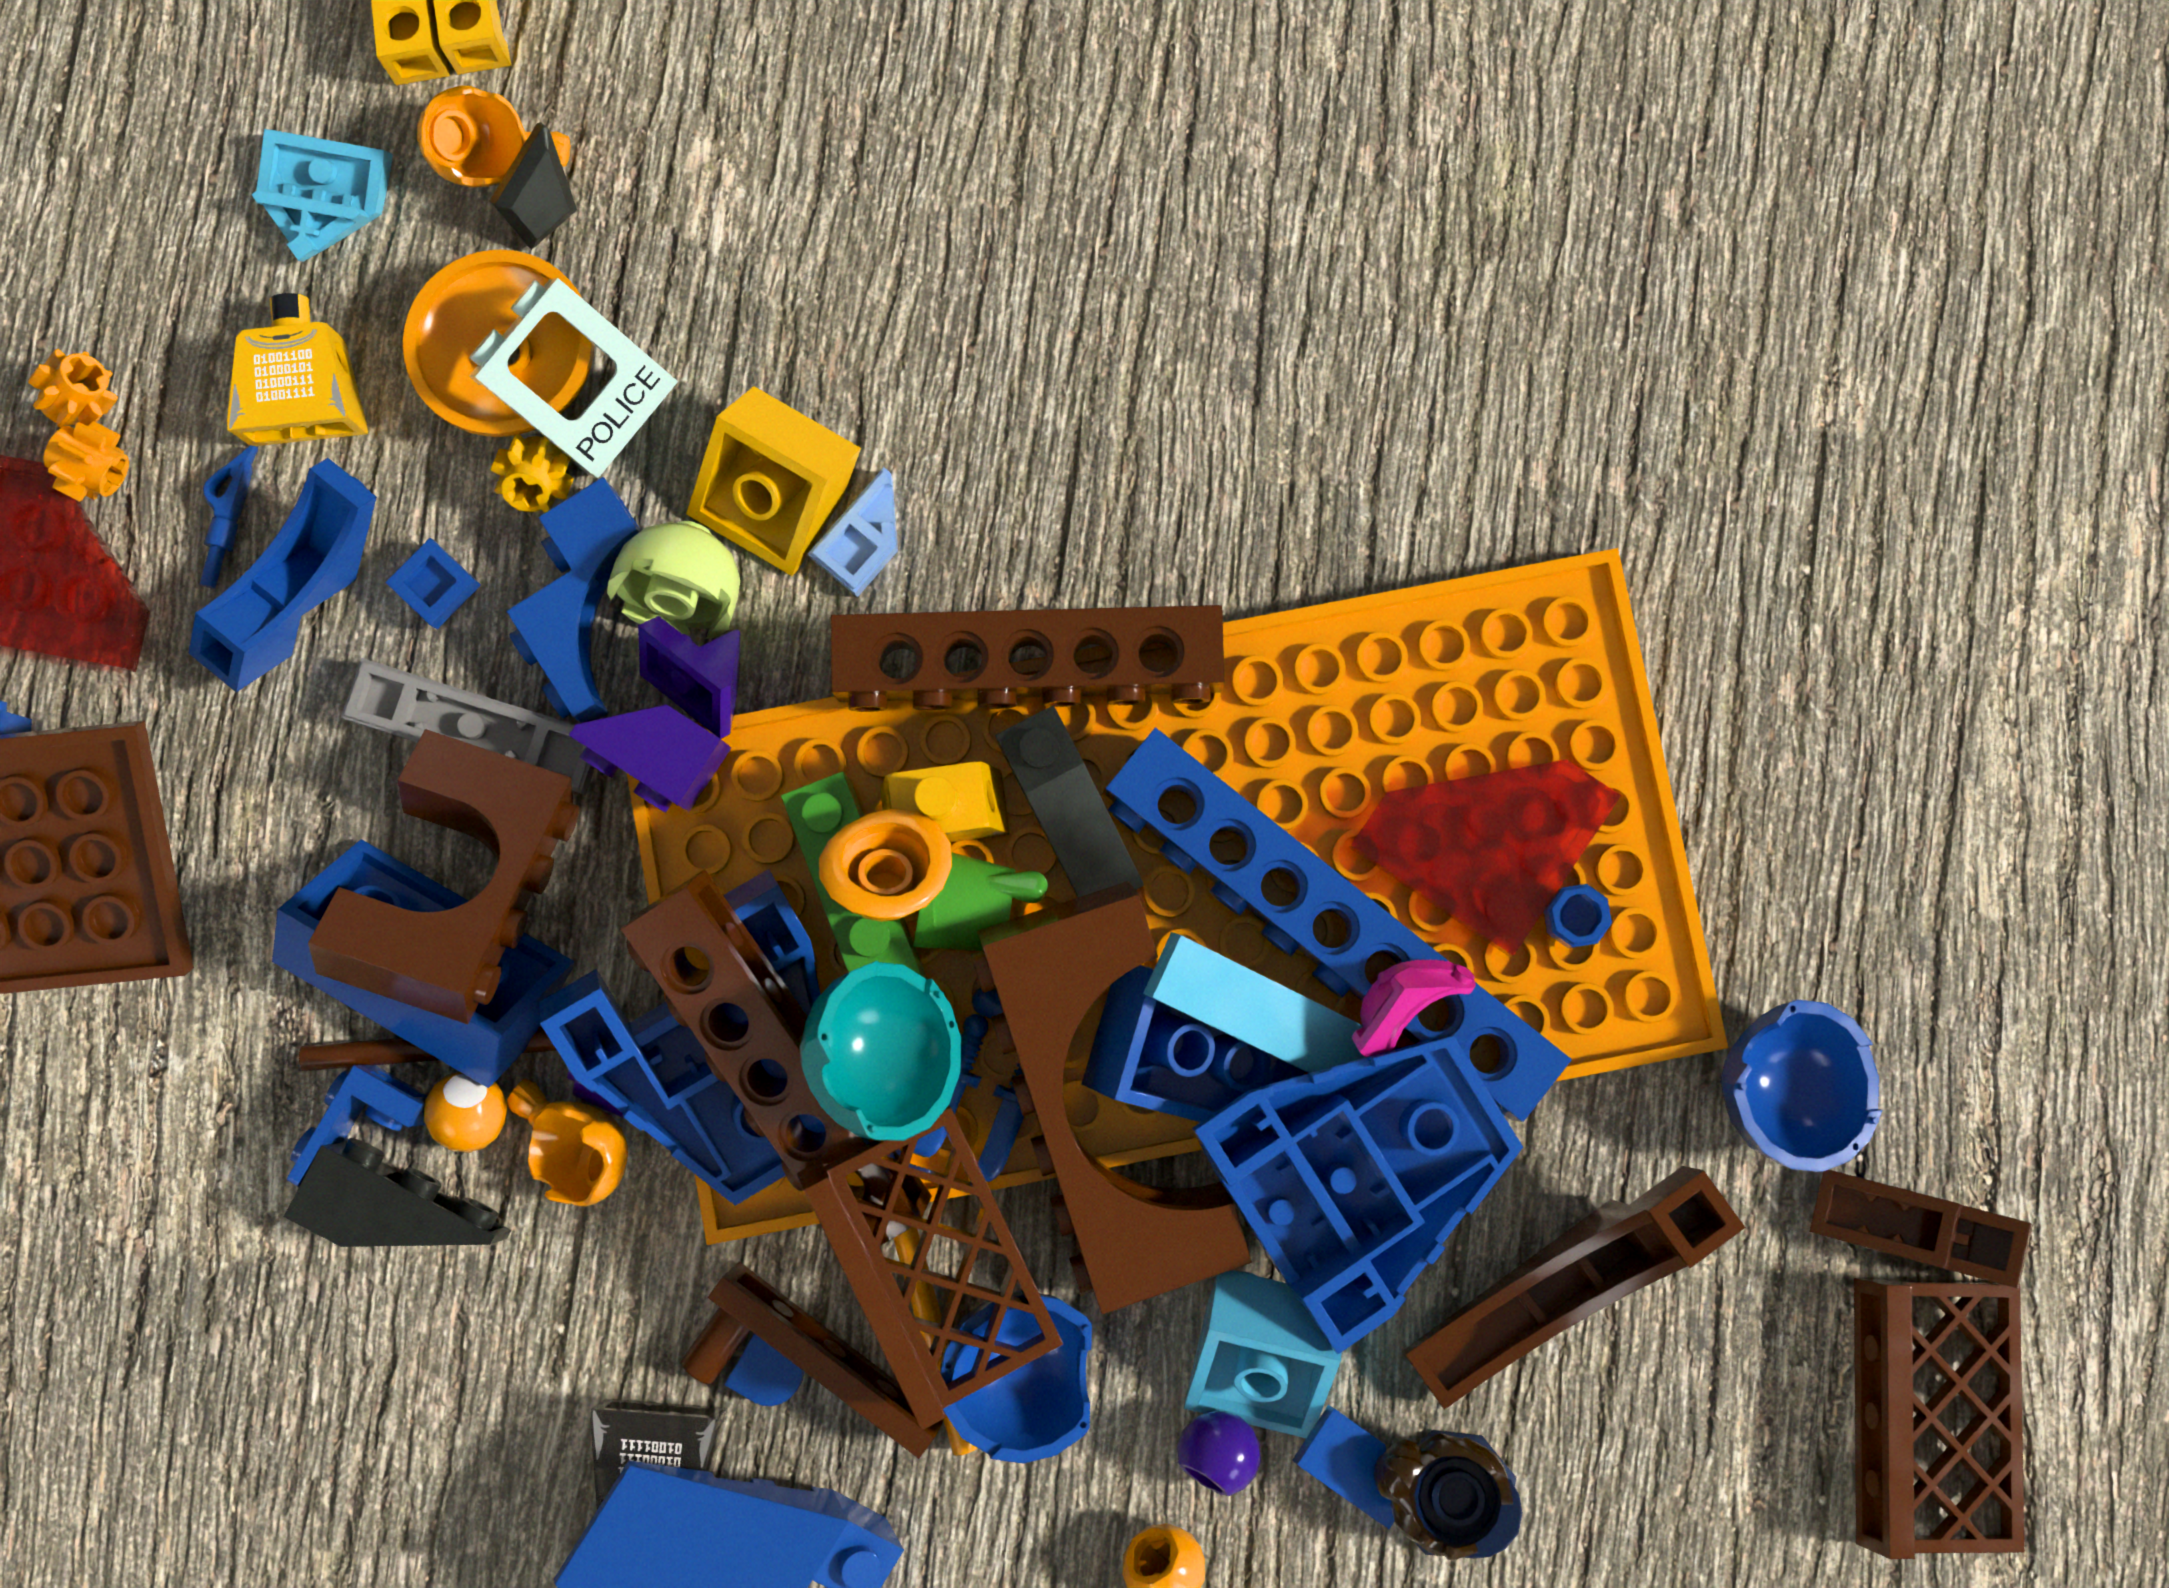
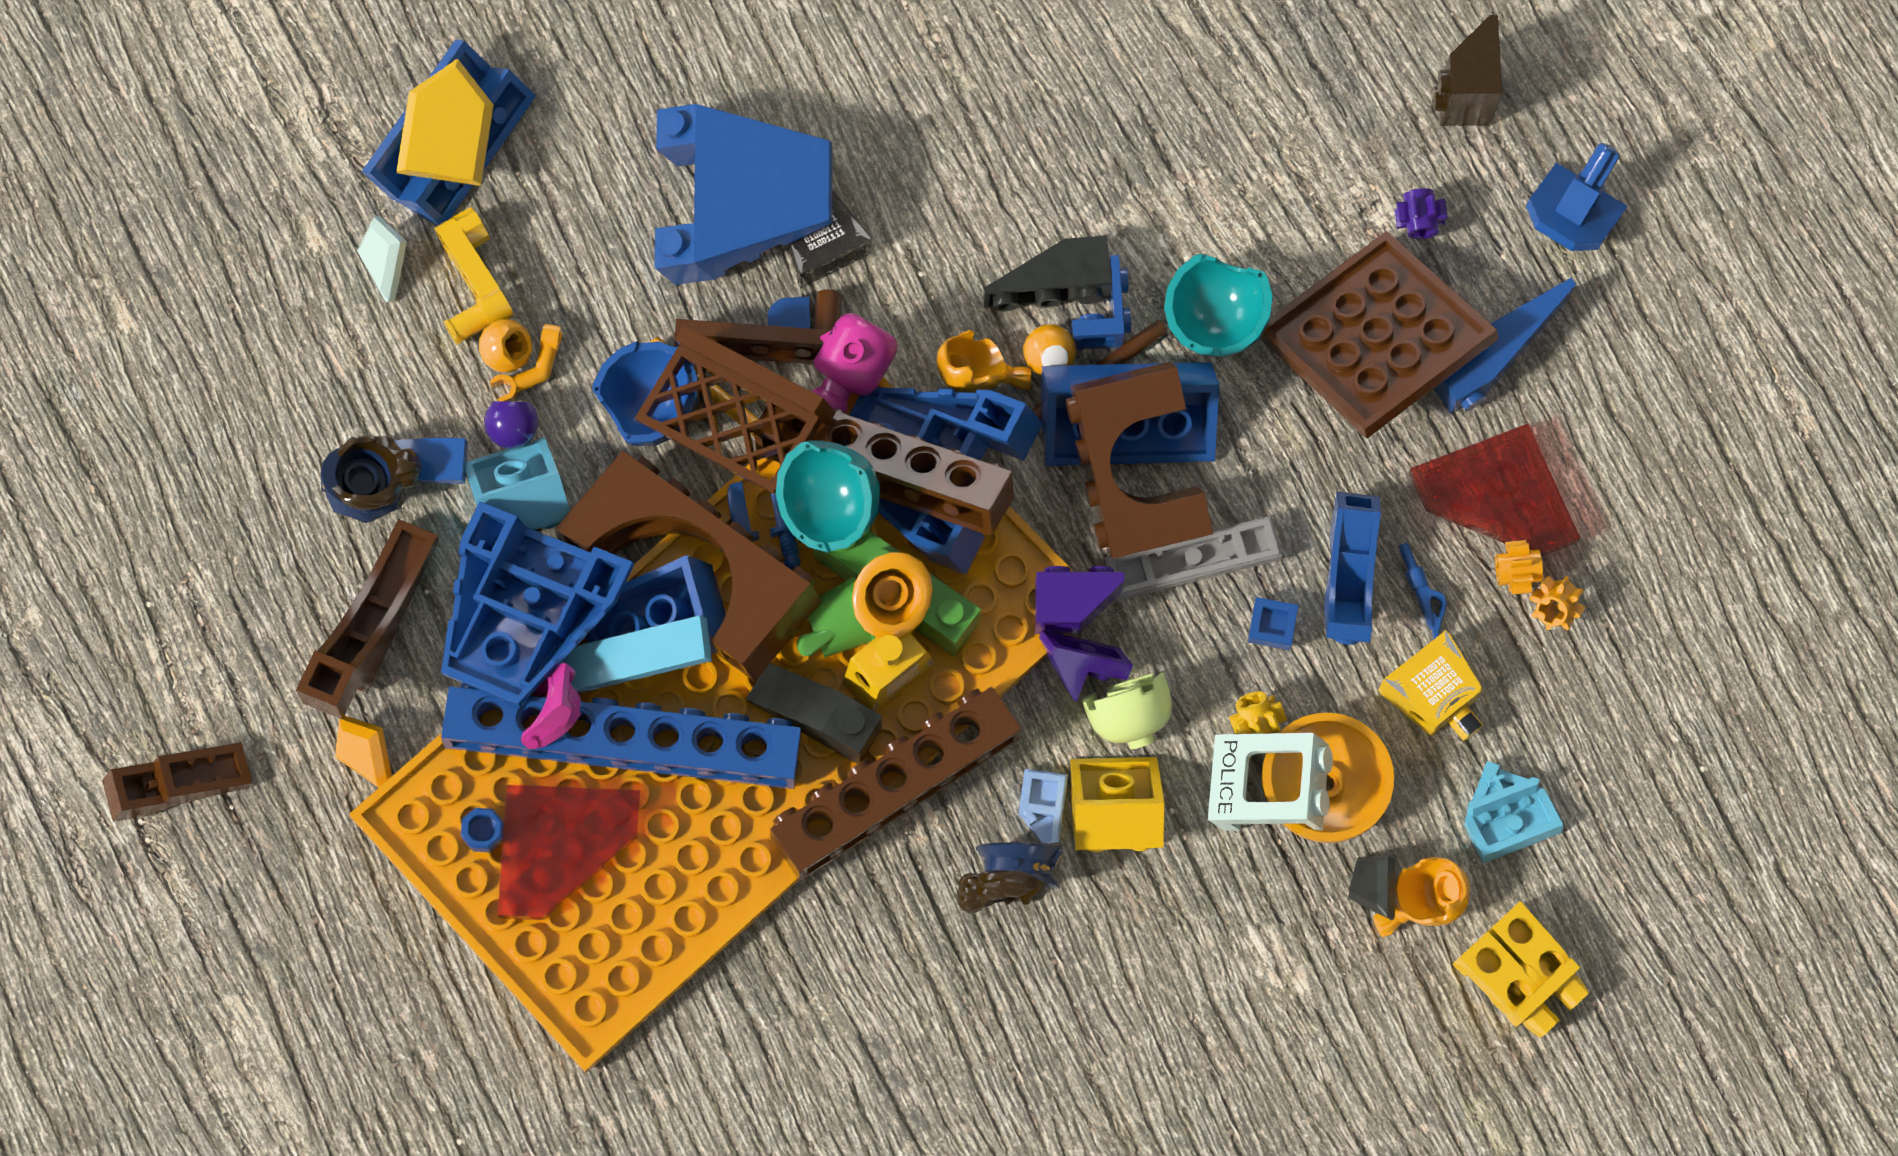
camera: 140 degrees right, 10 degrees down
(206, 1024) = (1217, 306): none -> teal cylinder
(559, 619) = (1183, 639): blue arch -> none
(729, 1244) = (853, 359): none -> dark pink piece
(956, 459) = (1009, 873): none -> piece
(1103, 1533) = (549, 346): none -> light orange arm
(1659, 1121) = (363, 749): none -> light orange piece
(1803, 1086) = (294, 810): blue cylinder -> none
(1888, 1430) = (133, 657): reddish brown fence -> none

